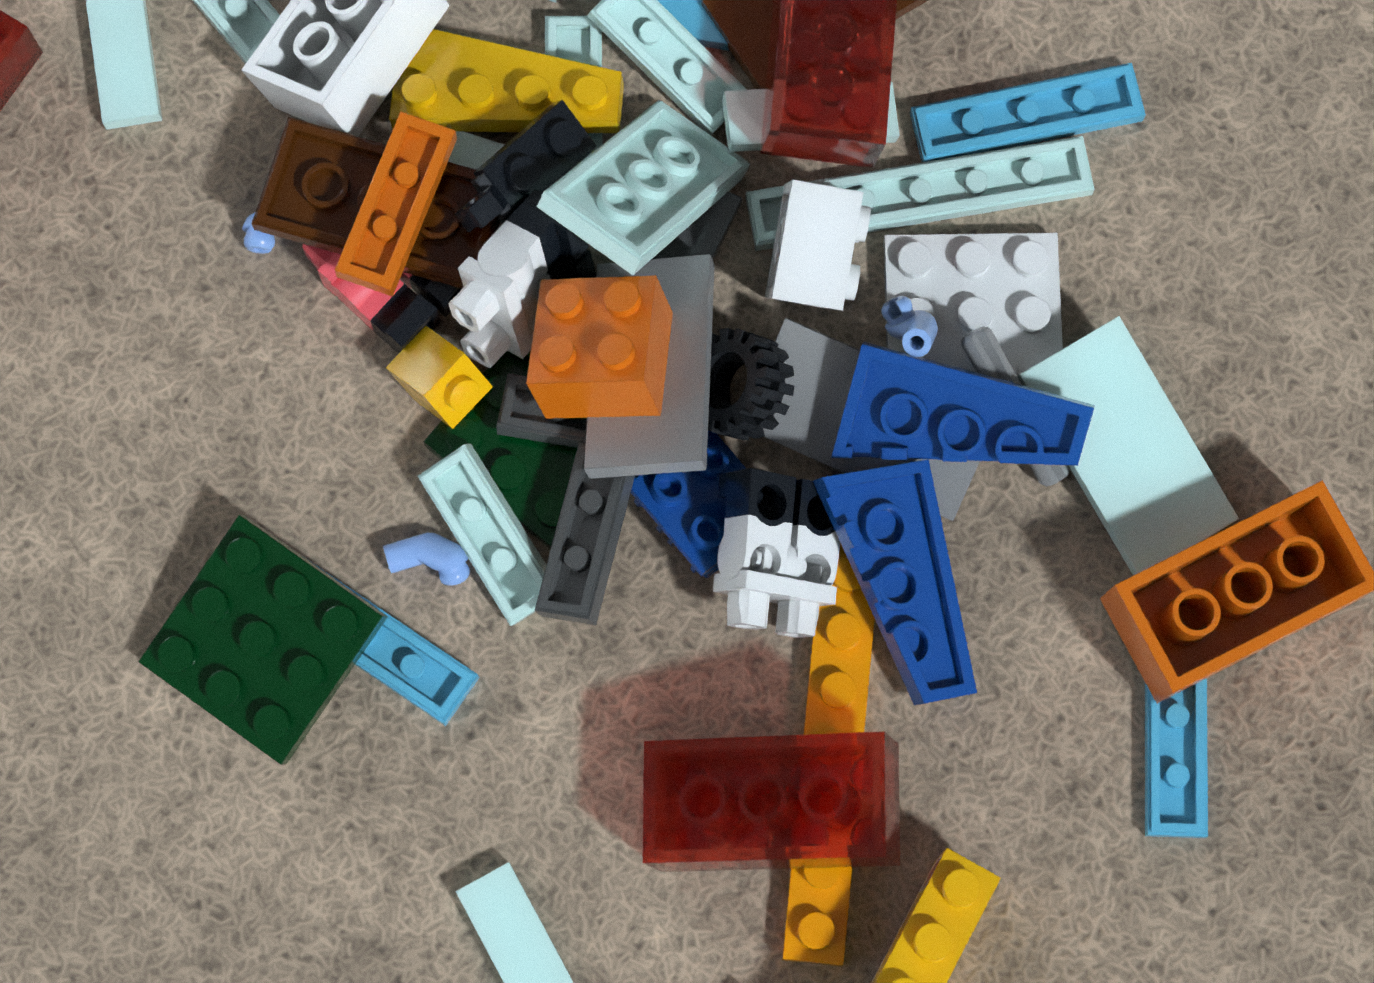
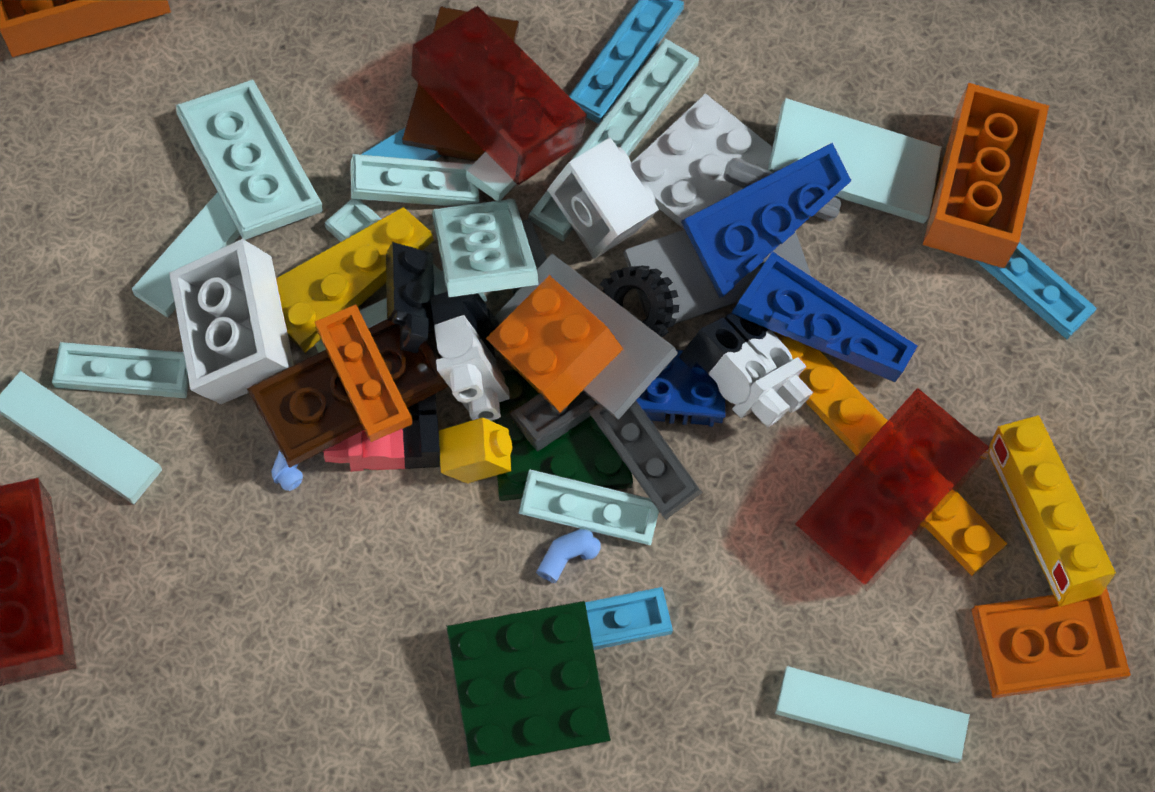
camera: 50 degrees left, 10 degrees down
(913, 328) = (692, 194): light blue arm -> none

